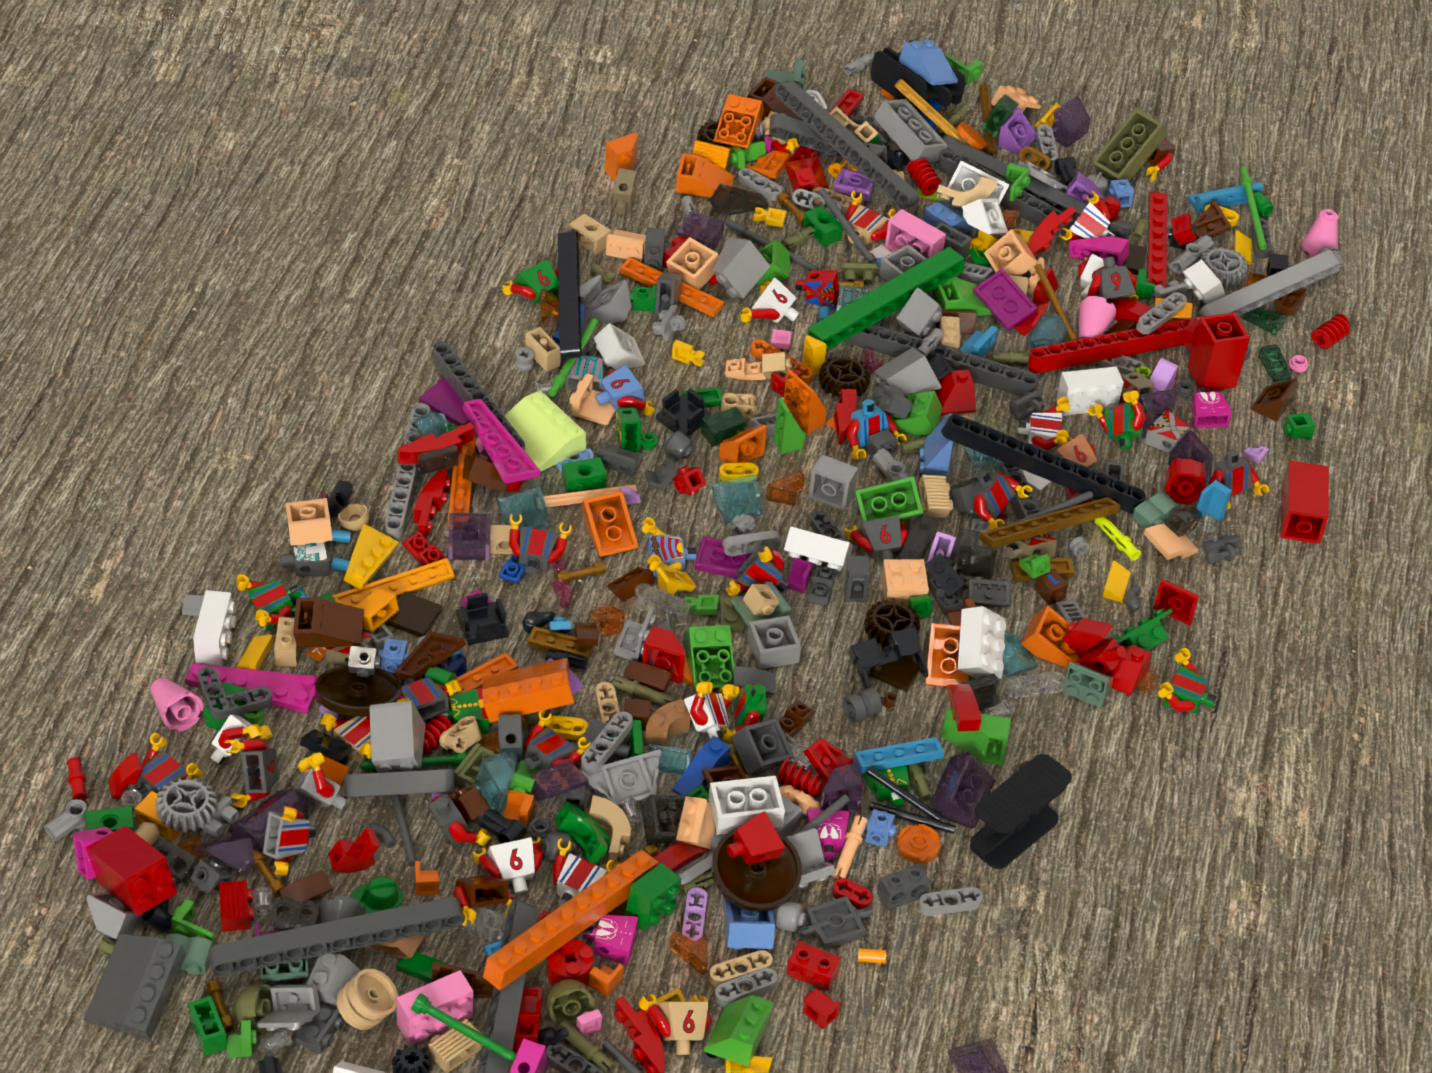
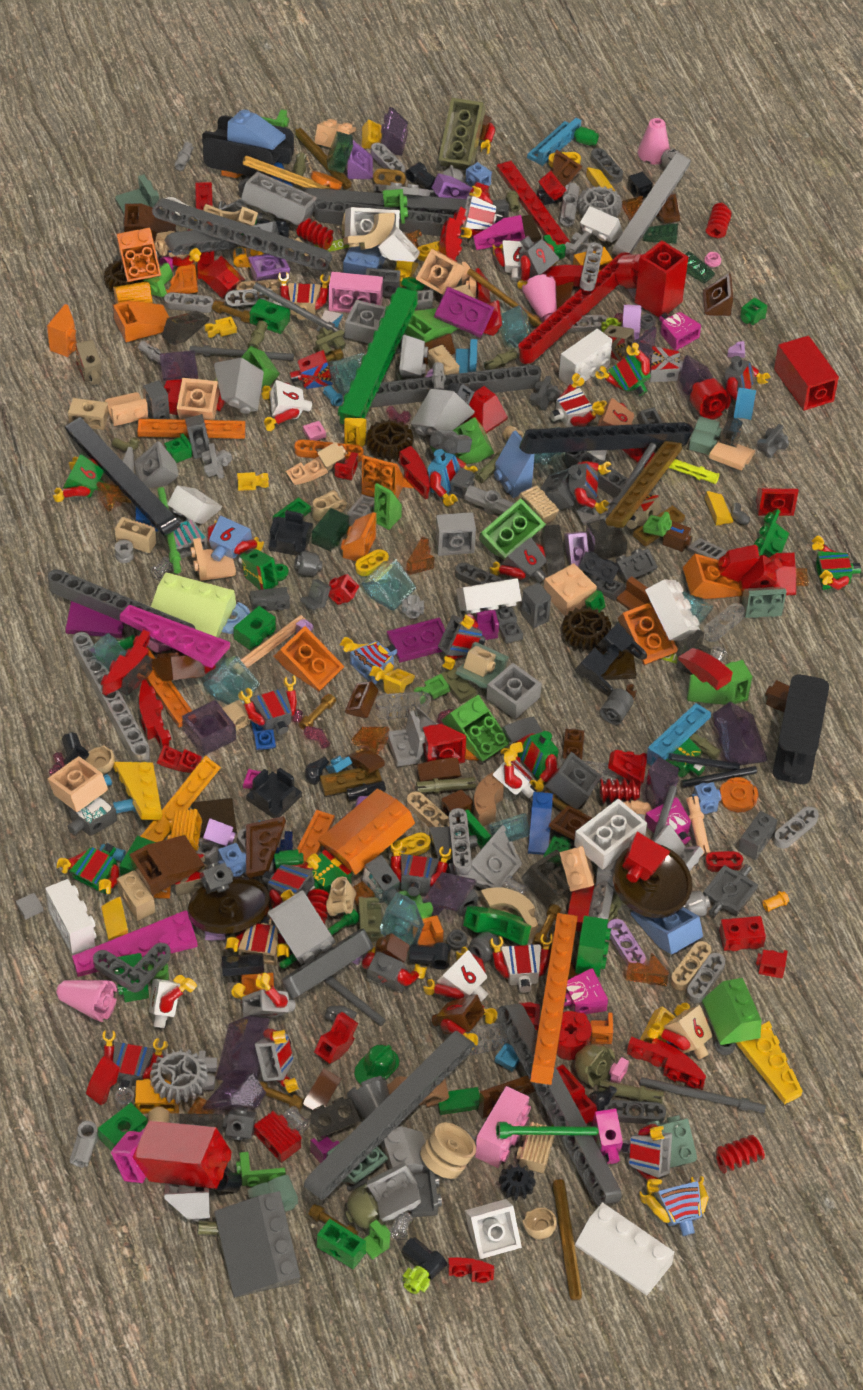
camera: 30 degrees left, 5 degrees up
(76, 779) = (60, 1105): red pin -> none
(259, 769) = (208, 1015): dark grey torso -> none
(398, 624) = (219, 833): none -> lavender slope
(426, 881) = (405, 1030): orange panel -> none
(733, 544) = (433, 617): light grey beam -> none
(1079, 546) = (671, 492): light grey bush -> none
(1246, 182) = (569, 123): bright green bar -> none

